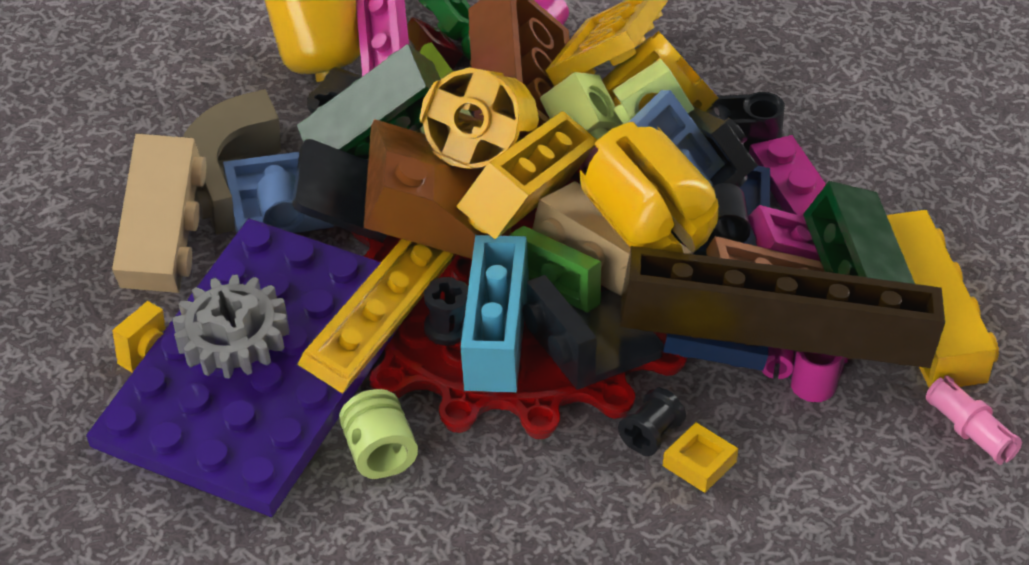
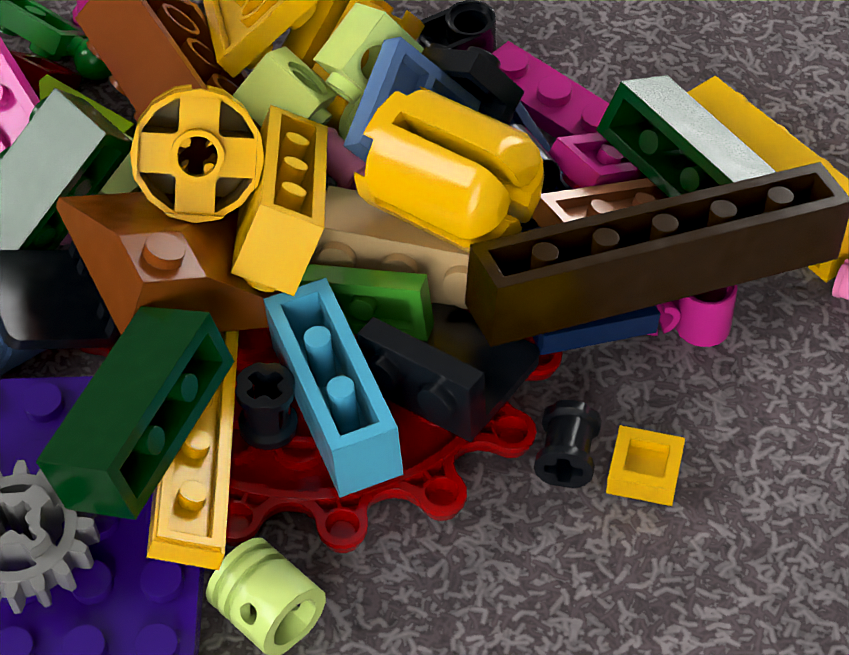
camera: 25 degrees left, 5 degrees up
(340, 269) = (136, 412): none -> dark green brick

